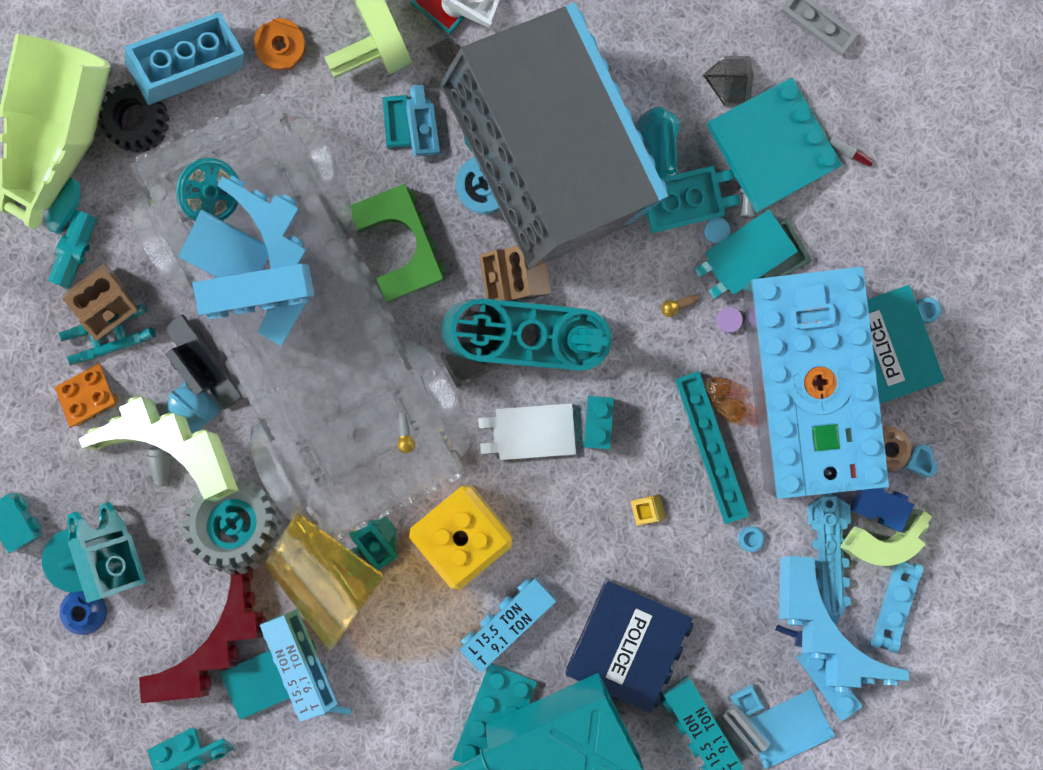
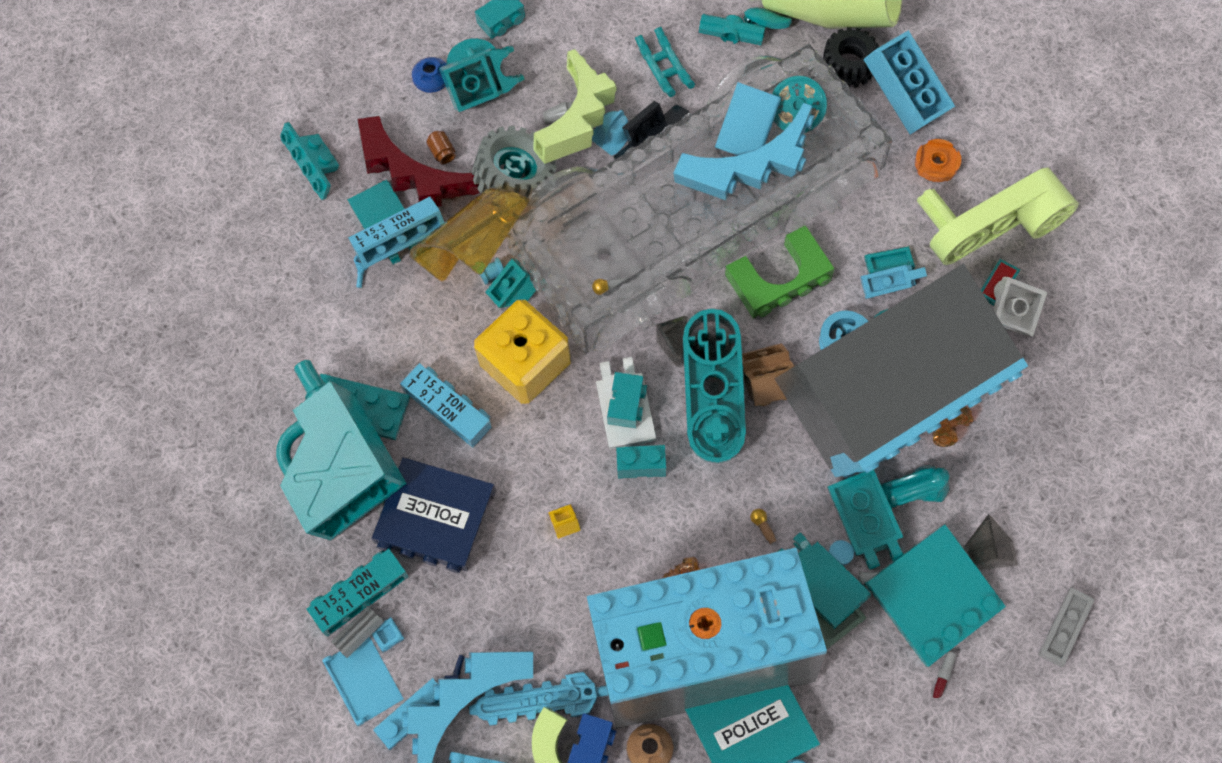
camera: 90 degrees right, 20 degrees down
(85, 396) = (610, 54): orange hinge -> none
(97, 301) = (693, 48): medium nougat piece -> none
(186, 607) = (441, 147): none -> dark orange brick
(253, 289) = (717, 137): medium azure brick -> none
(523, 426) = (626, 408): none -> teal brick
(711, 447) = (631, 569): teal plate -> none
(750, 539) = (545, 620): medium azure tile -> none

